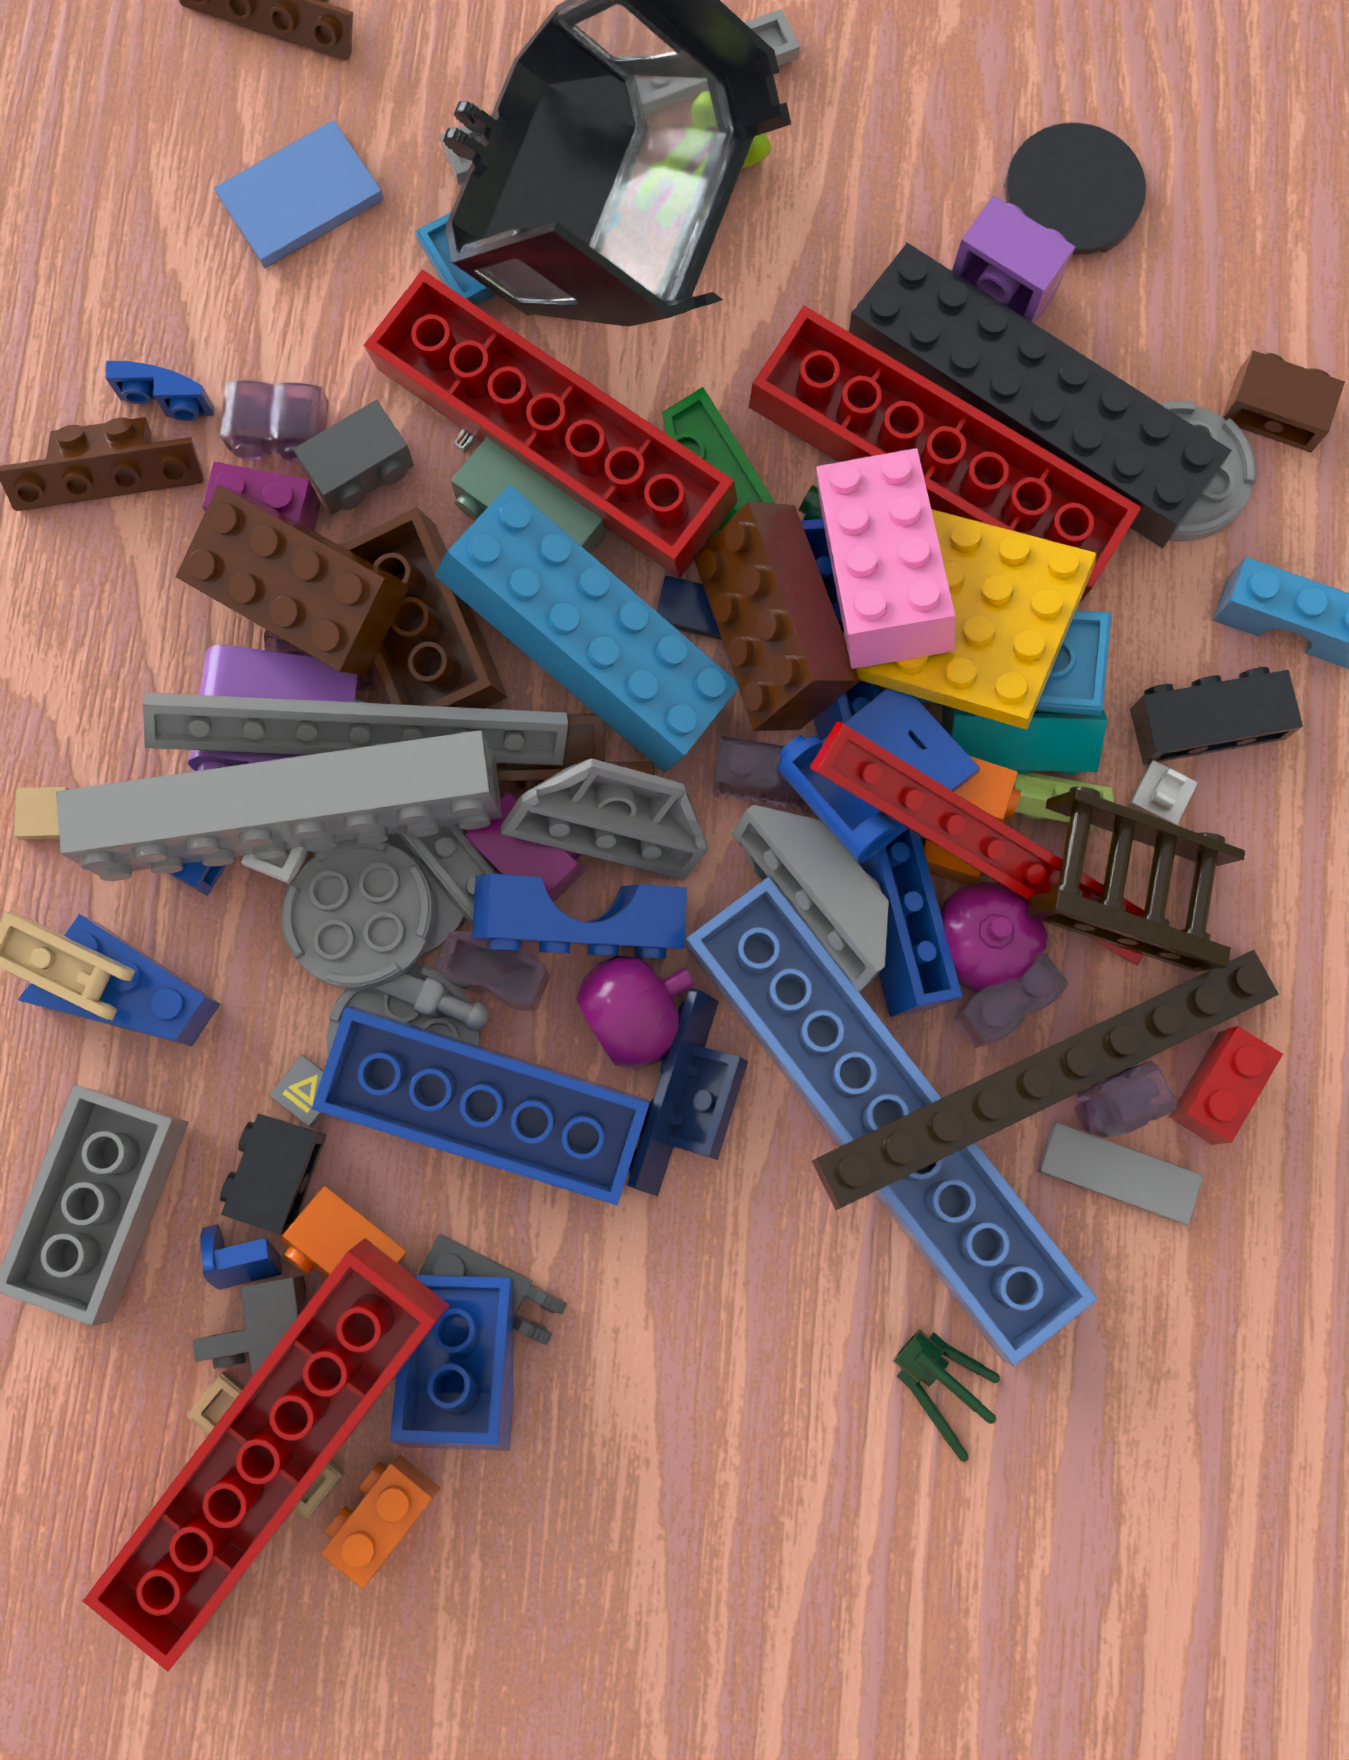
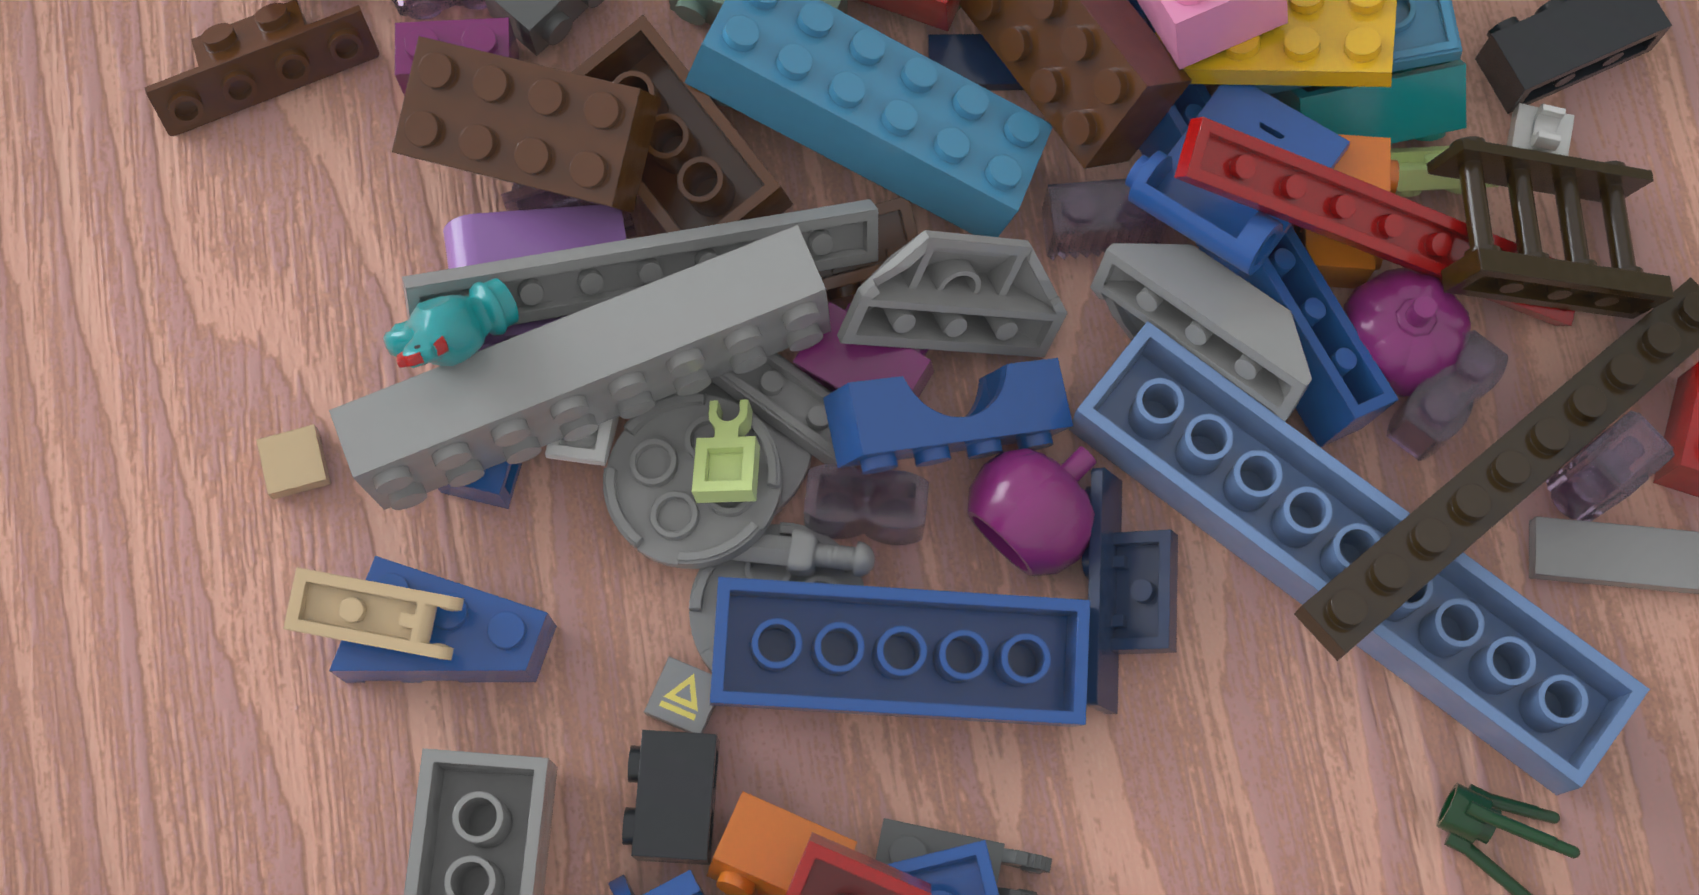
camera: 15 degrees left, 5 degrees down
(171, 747) = (452, 326): none -> teal animal
(384, 909) = (728, 462): none -> yellowish green plate

